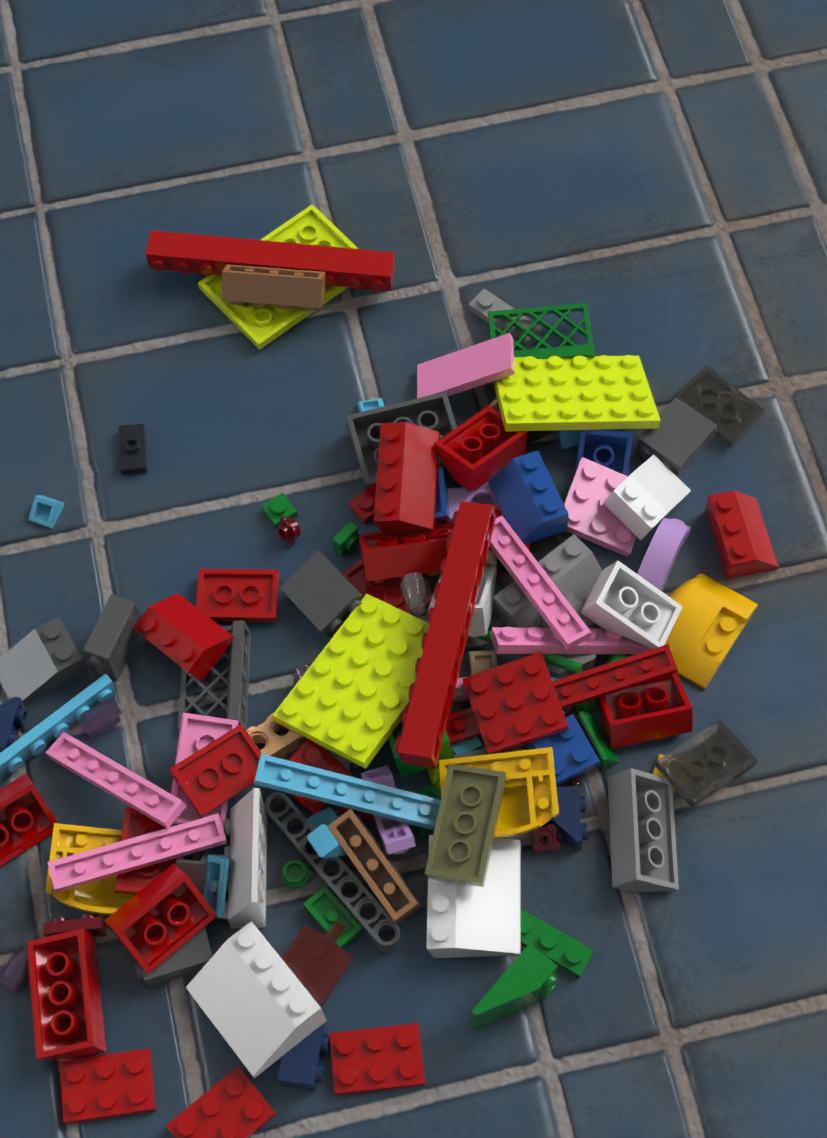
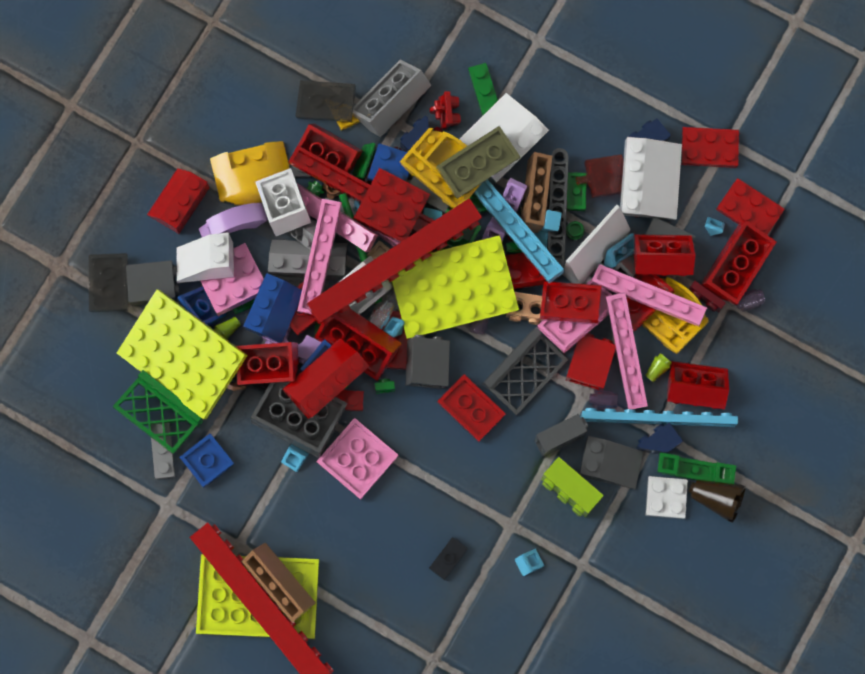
camera: 140 degrees left, 15 degrees up
(53, 594) = (571, 487): none -> lime brick
(67, 806) = (658, 367): none -> lime cone
(134, 1024) = (714, 226): none -> medium azure slope
(146, 741) = (591, 362): none -> red brick
(184, 634) = (522, 403): red slope -> none
(278, 507) = (402, 441): green plate -> none
(288, 530) = (410, 422): dark red plate -> none
(308, 457) = (357, 458): none -> bright pink plate
(377, 1059) = (614, 110): red plate -> none
(391, 593) = (394, 327): none -> medium azure slope
(450, 335) = (206, 460): none -> blue plate
(467, 367) = (224, 424): bright pink tile -> none
(519, 987) = (523, 77): green slope -> none
(555, 869) = (443, 110): none -> red hips
(559, 459) = (228, 327): none -> lime cone

